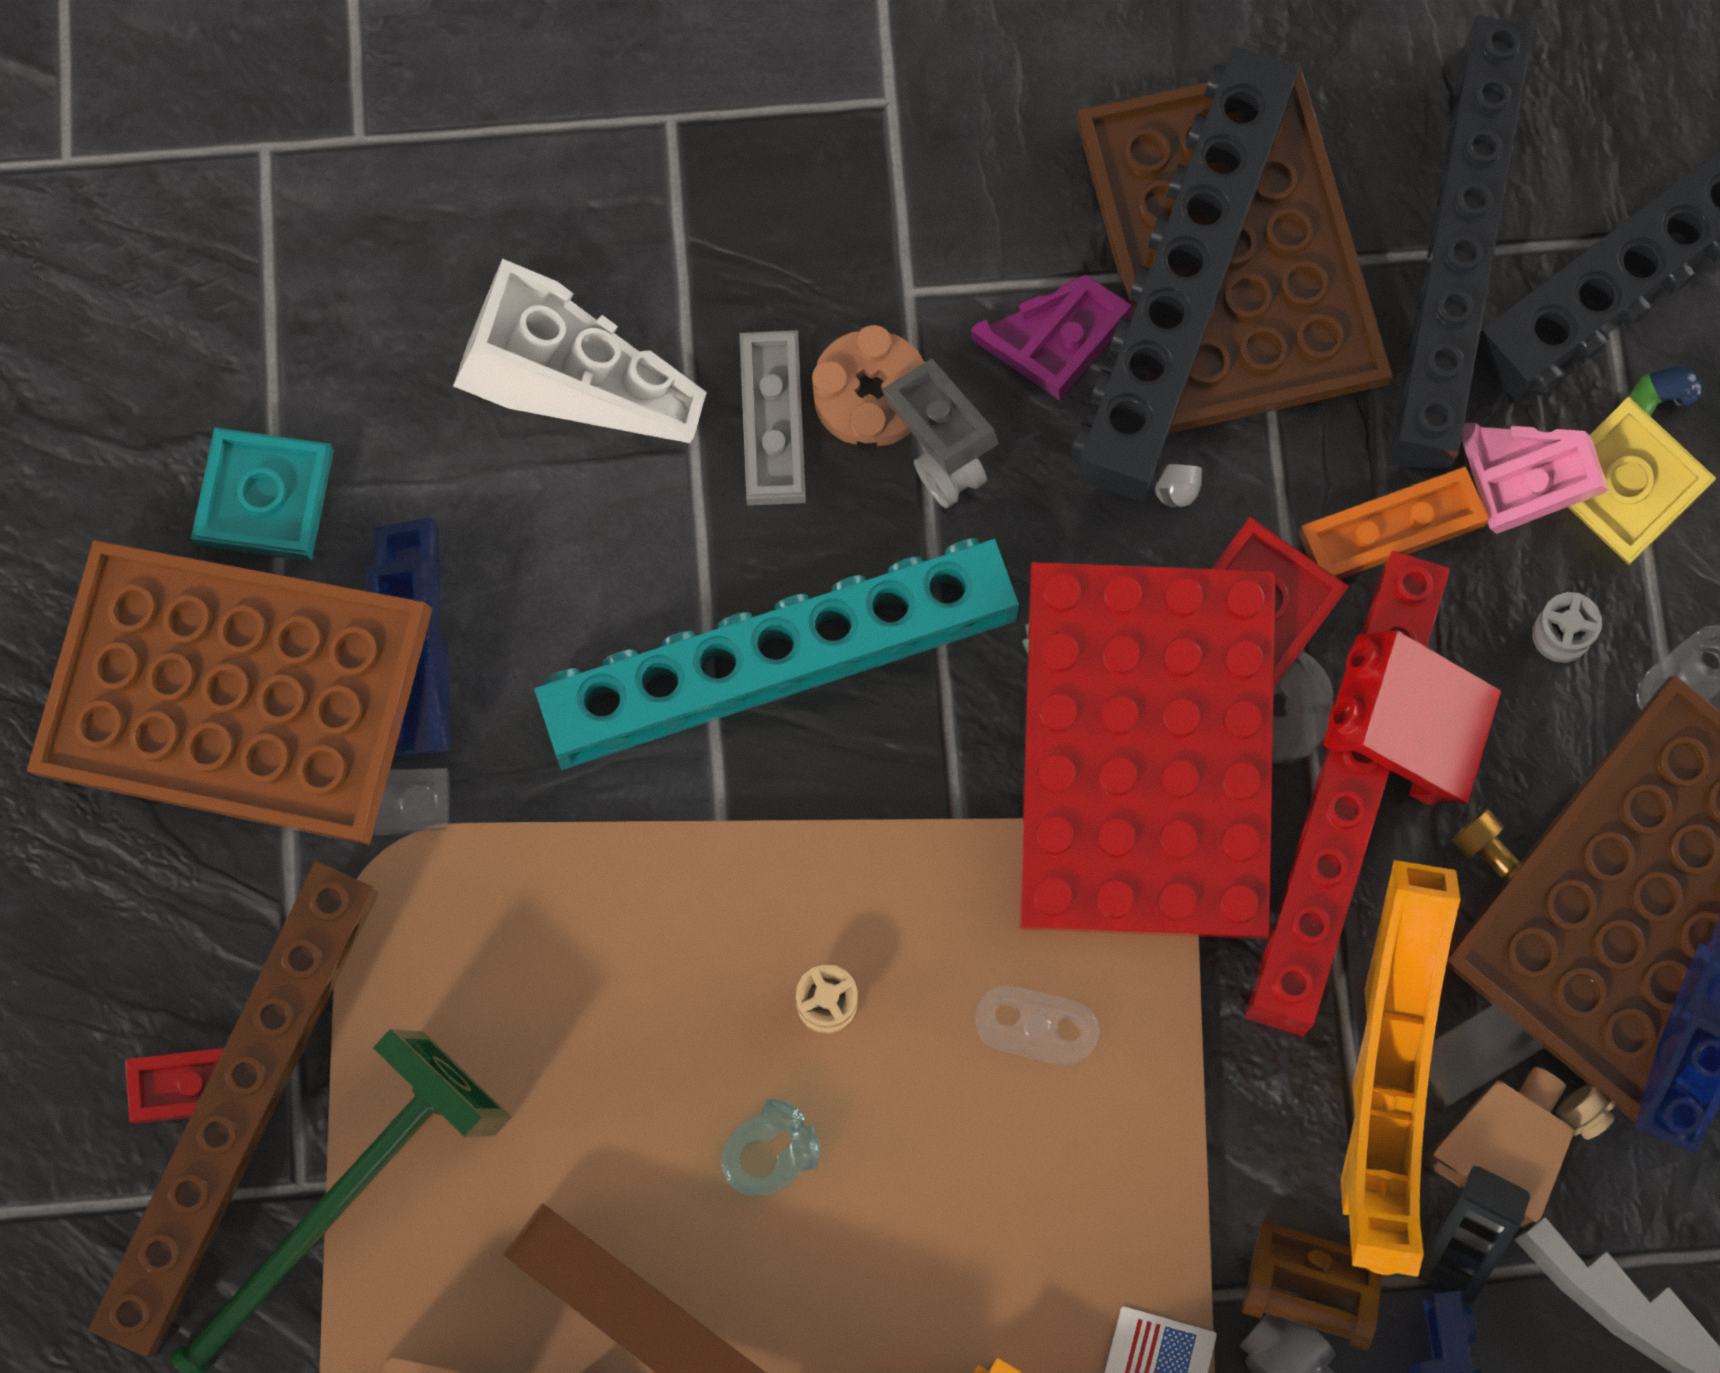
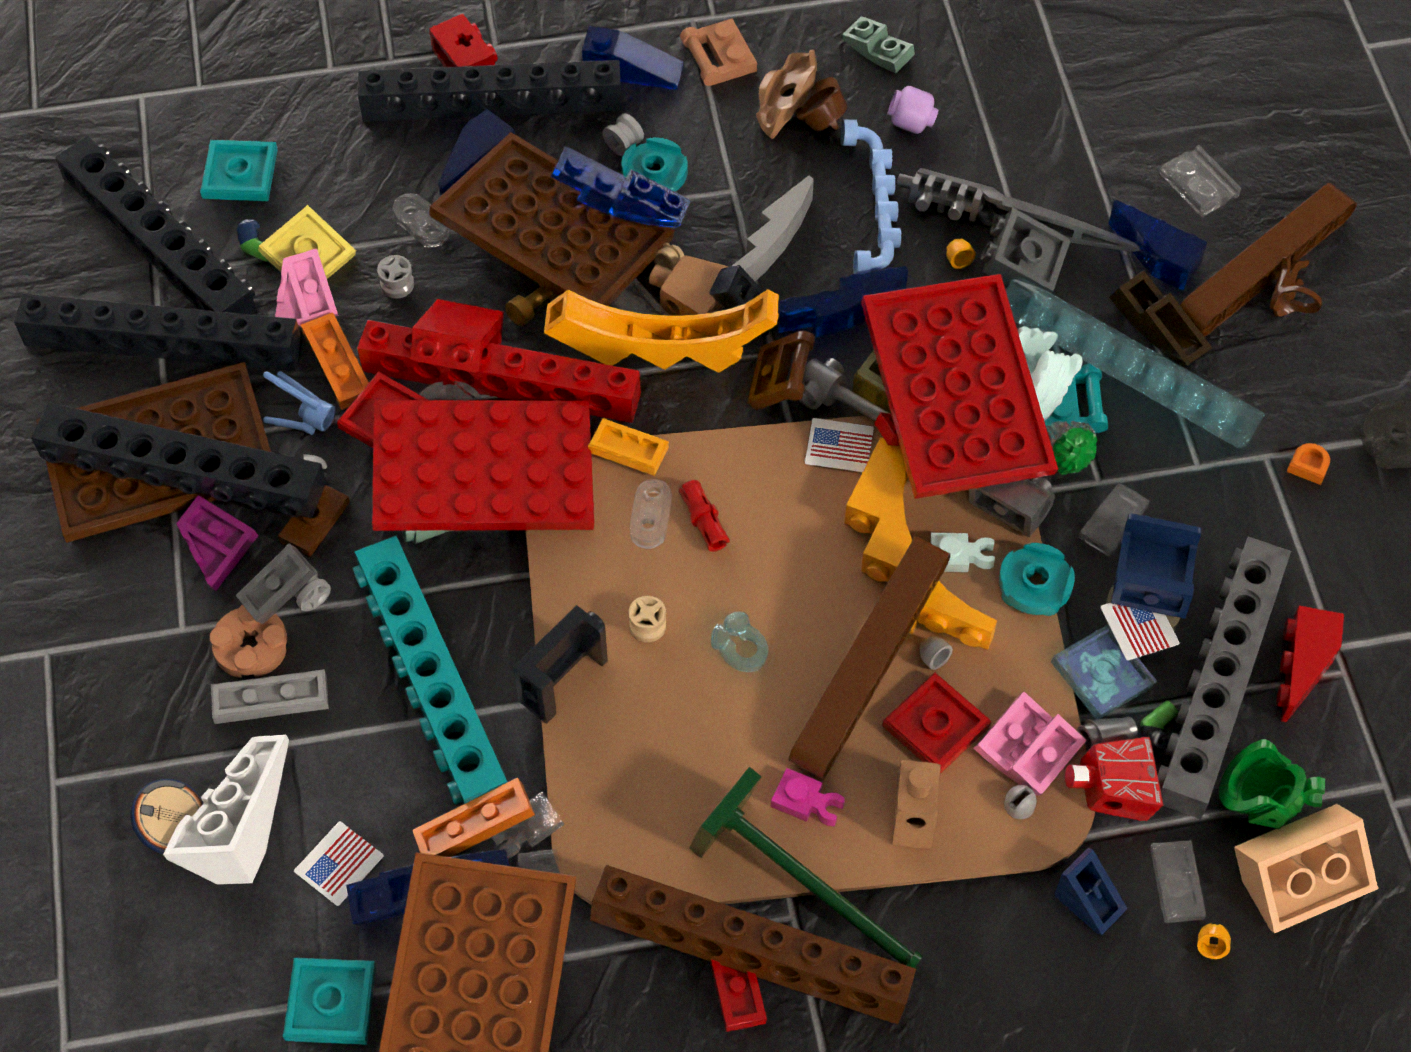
camera: 95 degrees left, 15 degrees down
(483, 1217) = (801, 795): none -> dark pink plate
(486, 514) = (338, 861): none -> sticker
(496, 795) = (532, 829): none -> clear plate
(505, 706) = (475, 821): none -> orange plate
(585, 258) = (160, 809): none -> piece
(709, 797) = (554, 656): none -> black panel
(1021, 1114) = (704, 515): none -> red pin
(1054, 477) = (309, 532): none -> reddish brown plate
(1169, 997) = (628, 446): none -> light orange plate
(1288, 489) = (313, 410): none -> medium blue plant

